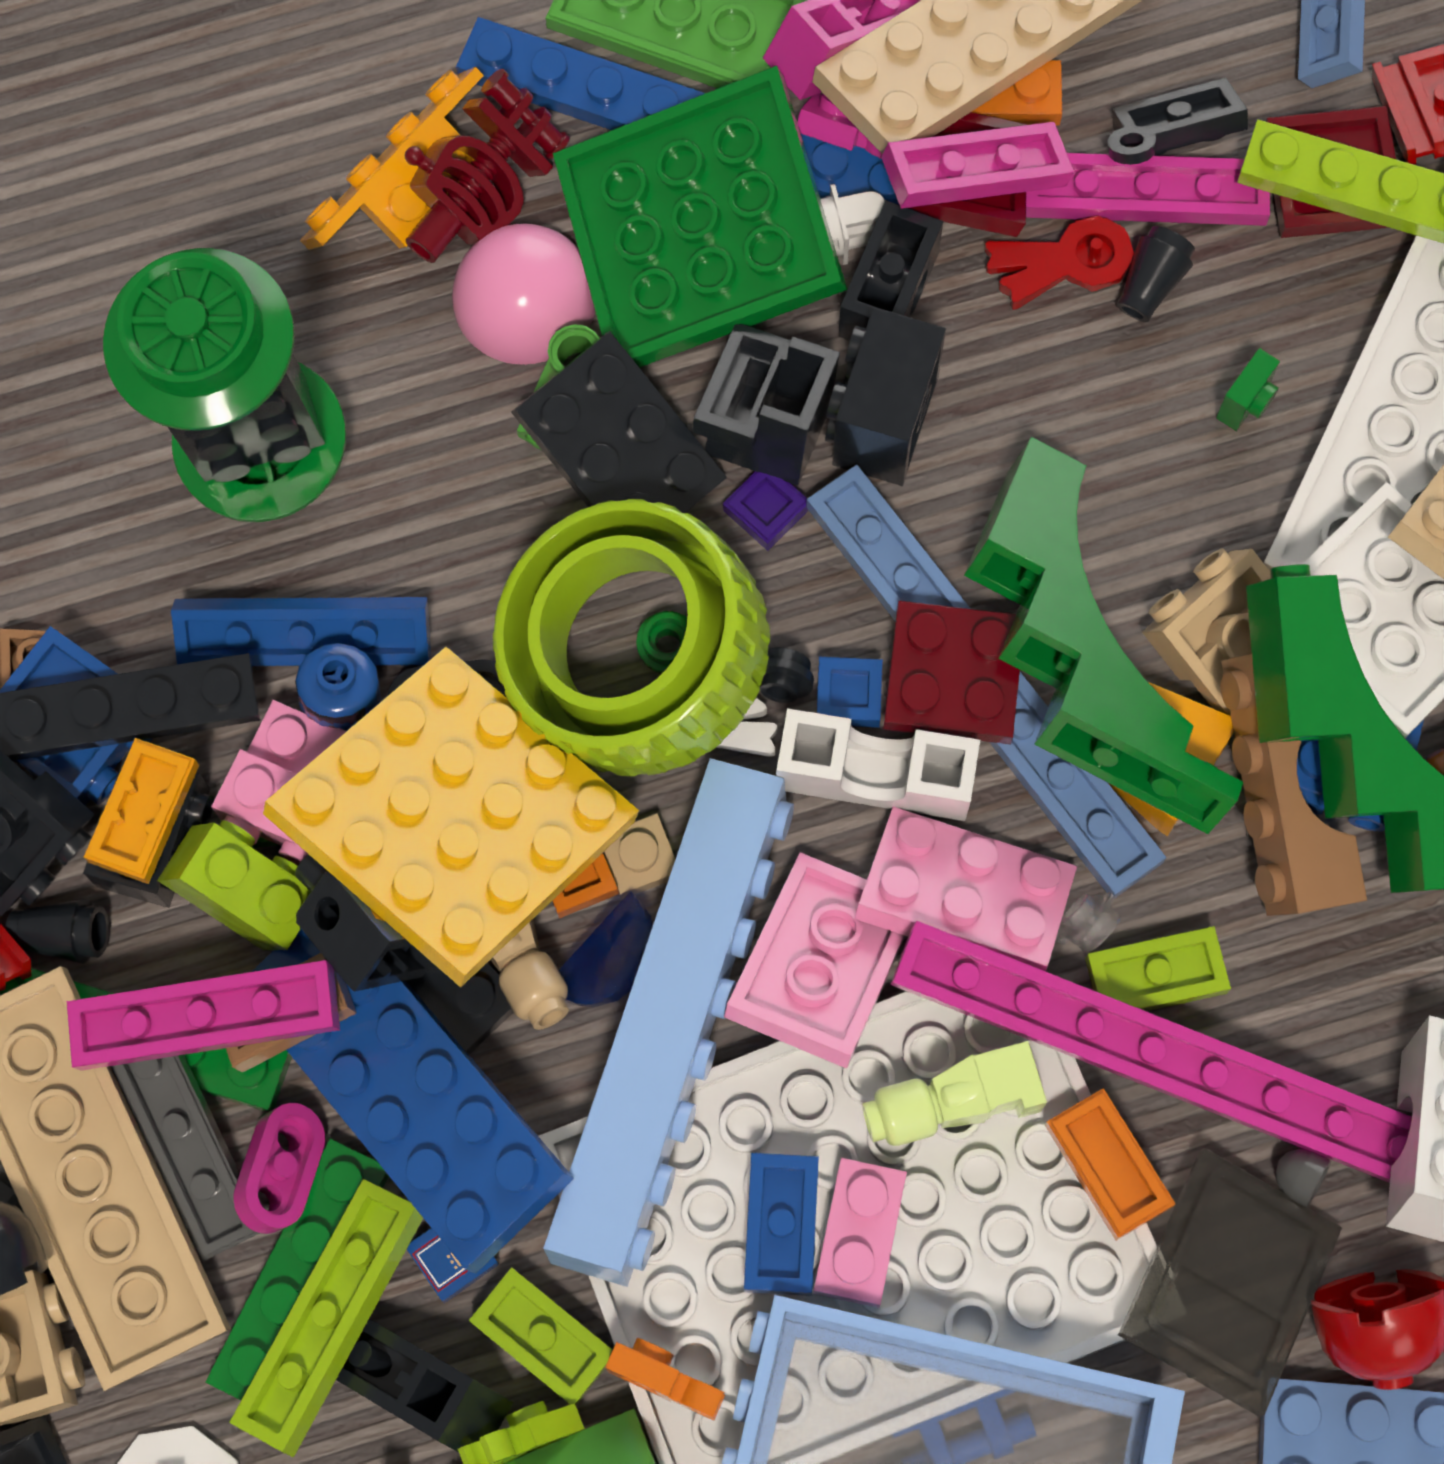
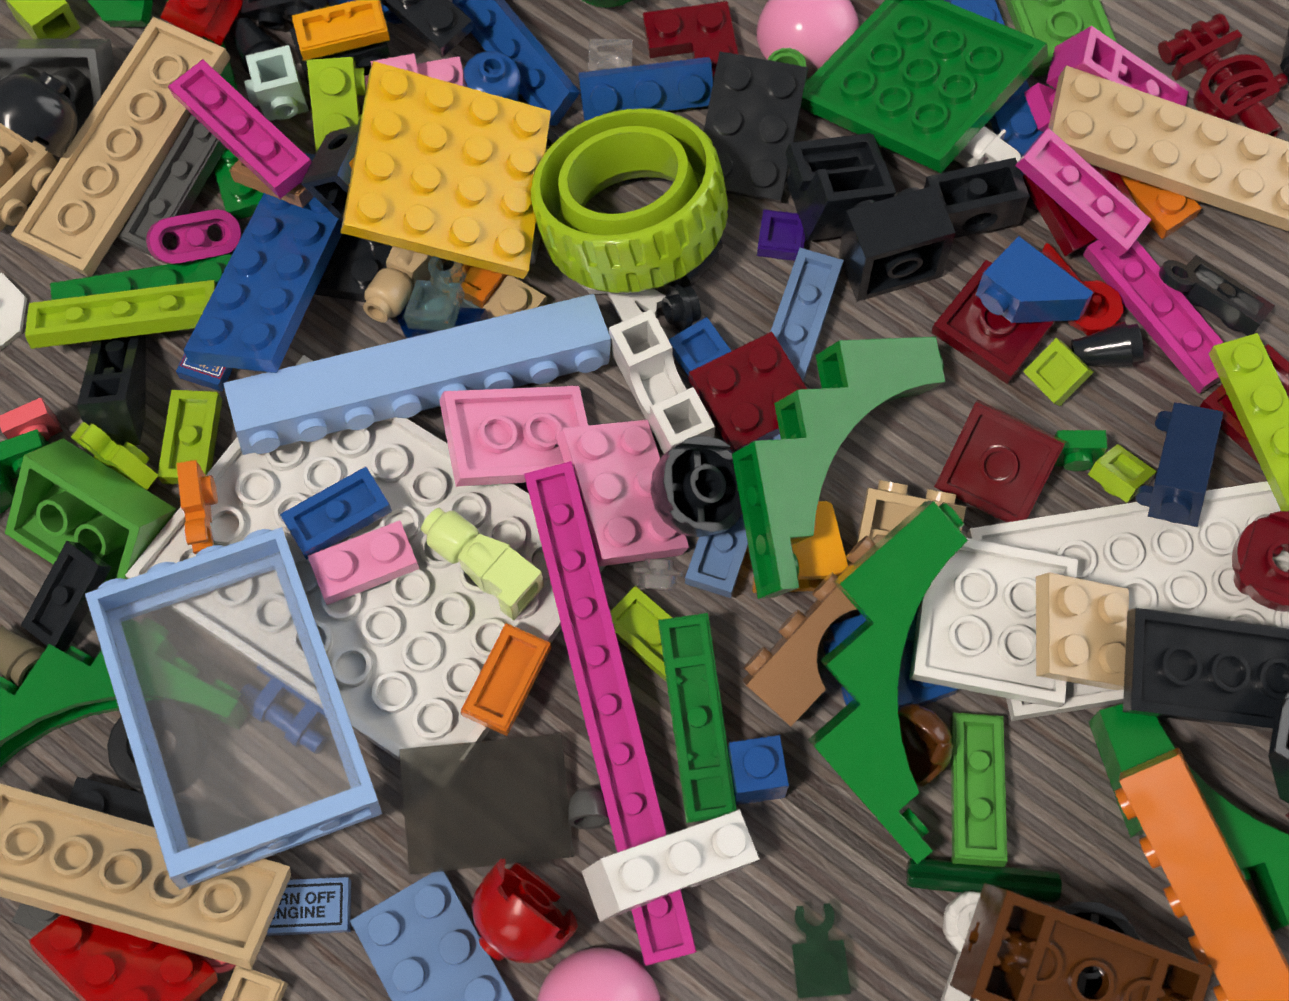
camera: 55 degrees right, 5 degrees down
(145, 939) = (275, 84): none -> light aqua brick
(404, 537) = (610, 54): none -> clear plate
(438, 407) = (690, 29): none -> dark red plate
(474, 521) = (649, 86): none -> blue plate
(588, 938) = (437, 301): none -> clear light blue plate
(1042, 299) = (1031, 287): none -> blue slope
(1042, 361) = (988, 337): none -> dark red plate
(1044, 809) = (697, 487): none -> black cylinder
(1148, 344) = (1058, 372): none -> lime plate
(1215, 479) = (999, 463): none -> dark red plate
(1286, 990) = (697, 717): none -> green plate
(1308, 367) = (1121, 473): none -> lime plate
(1349, 300) = (1183, 464): none -> dark blue brick
(1384, 968) = (758, 770): none -> blue brick

